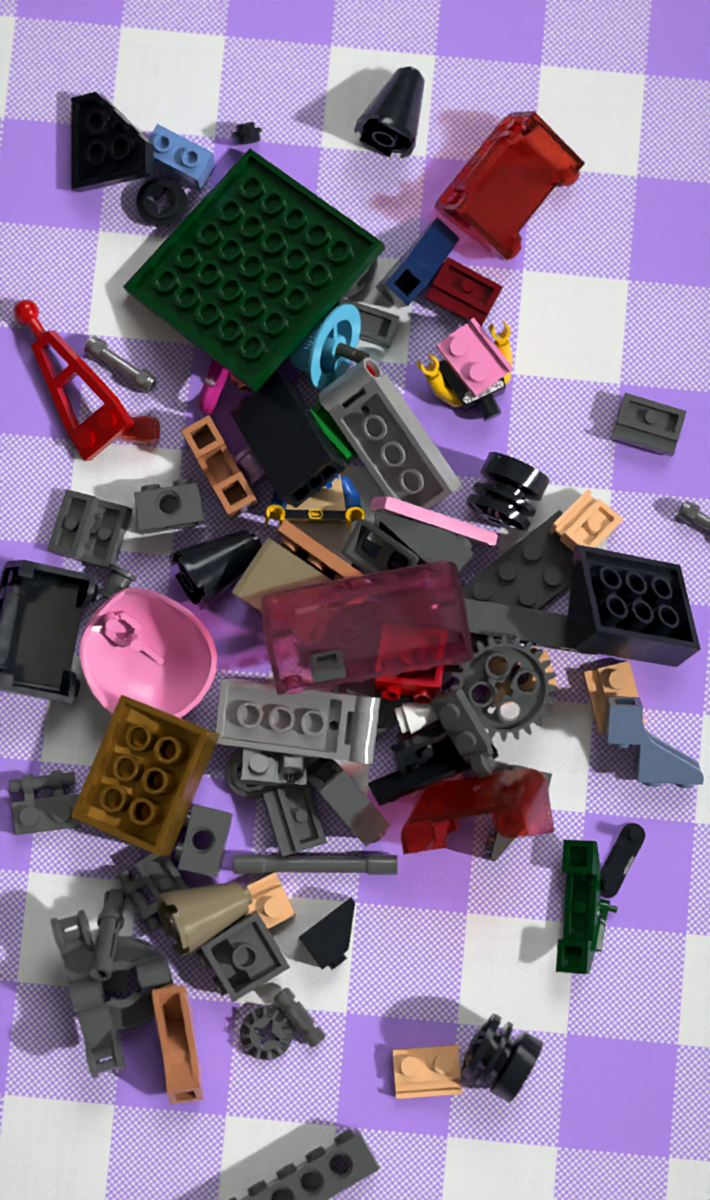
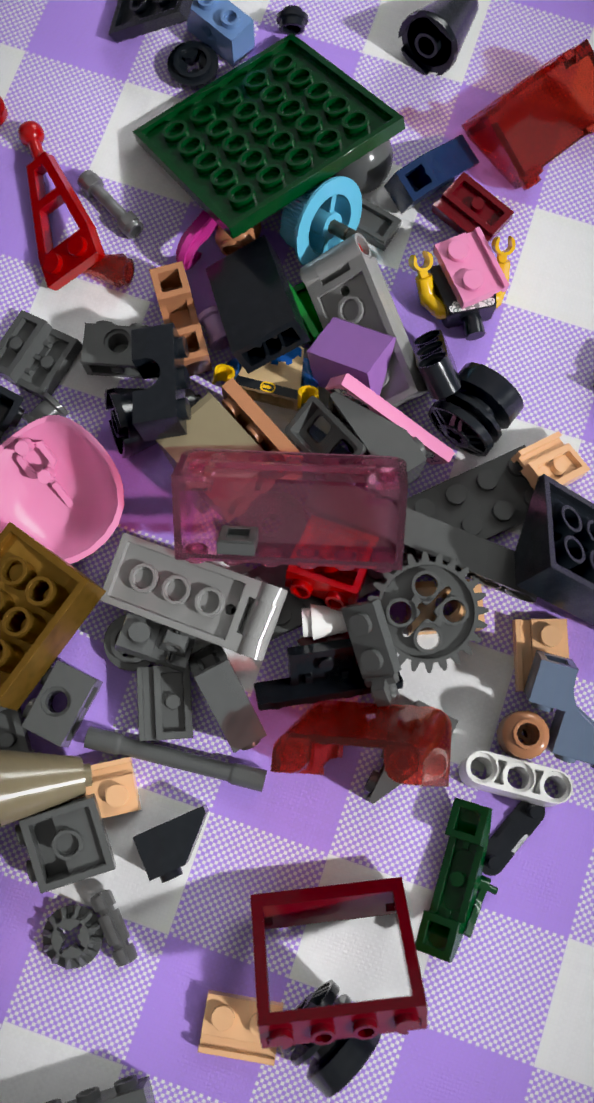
camera: 15 degrees right, 5 degrees down
(233, 564) = (162, 408): none -> black arch
(385, 470) = (352, 350): none -> medium lavender slope
(463, 459) = (436, 365): none -> black beam
(475, 955) = (346, 1020): none -> dark red window
(622, 772) = (534, 739): none -> nougat head
(625, 803) = (532, 777): none -> white beam

